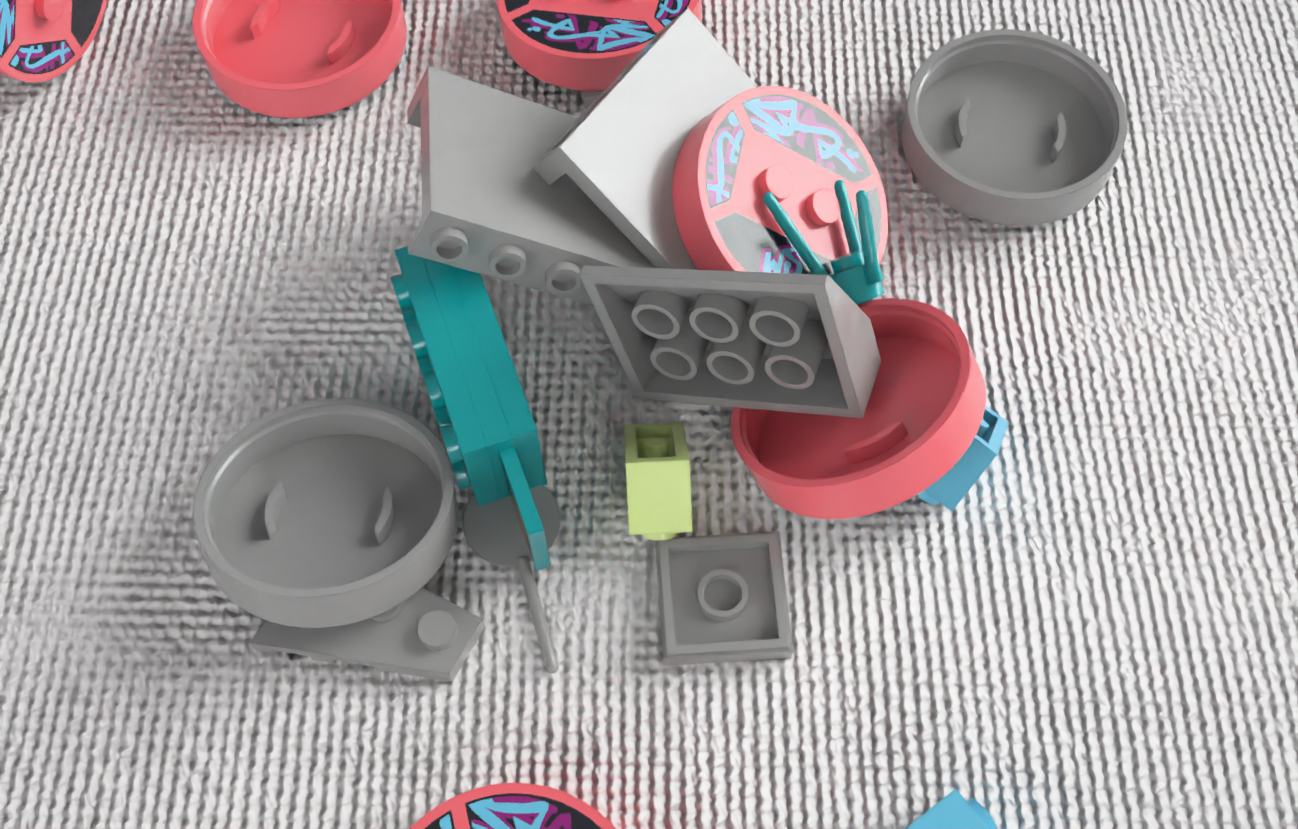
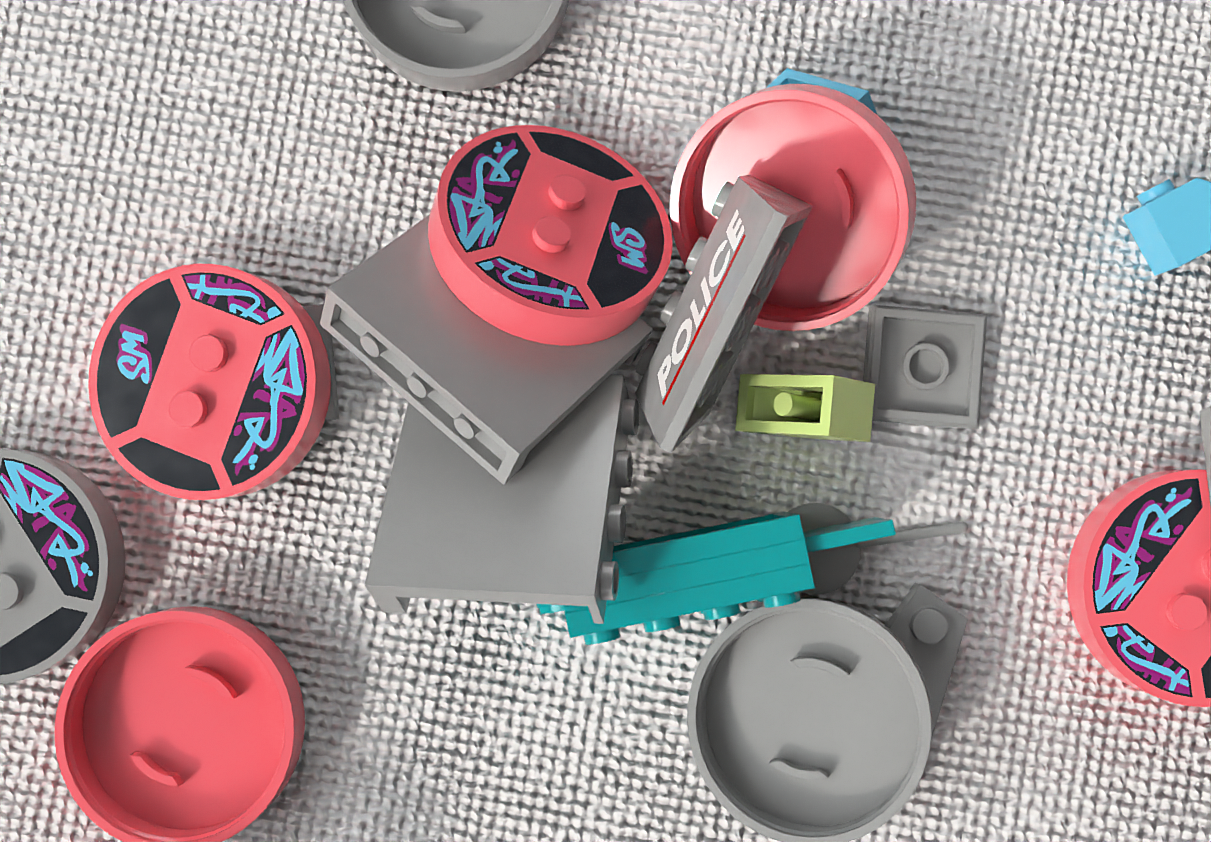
camera: 80 degrees left, 25 degrees up
(855, 272) = (642, 177): teal plant -> none

